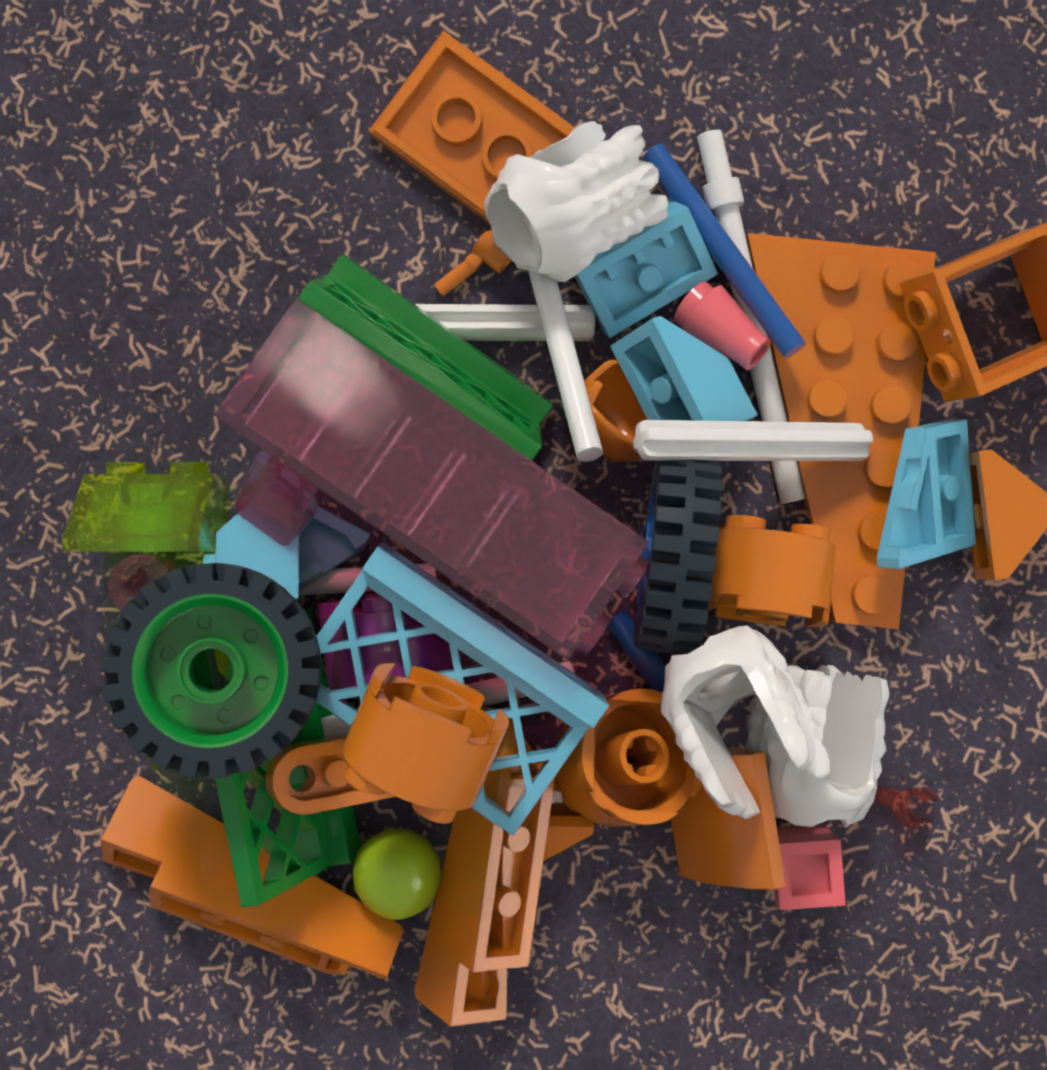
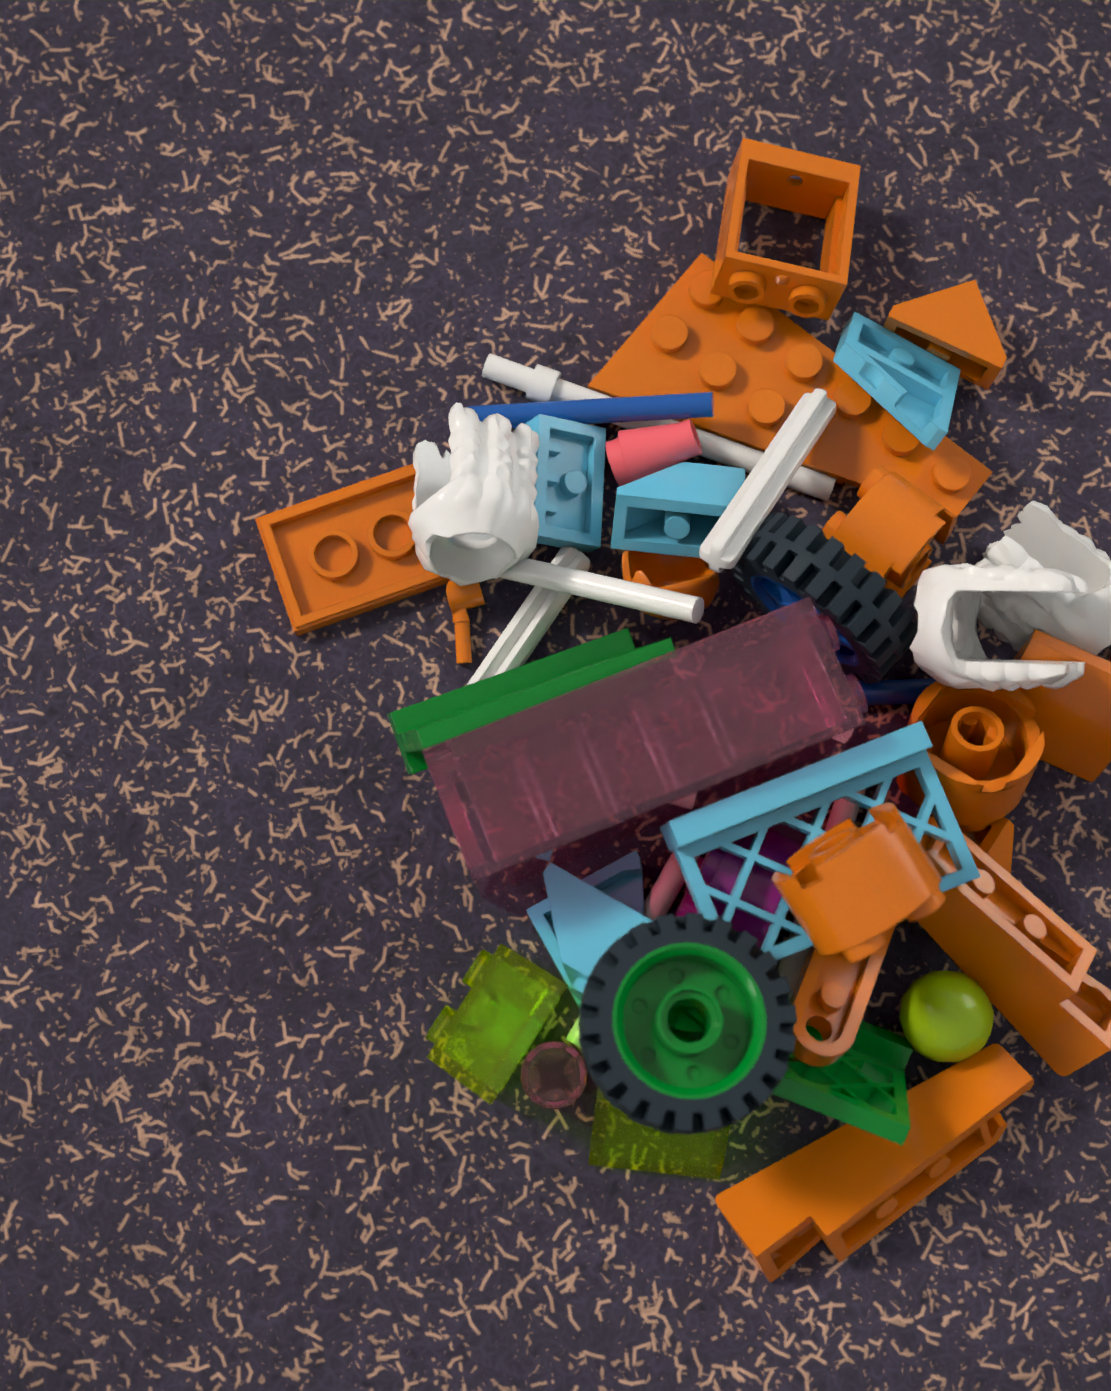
camera: 60 degrees left, 10 degrees down
(276, 499) = (567, 888): clear pink slope -> none

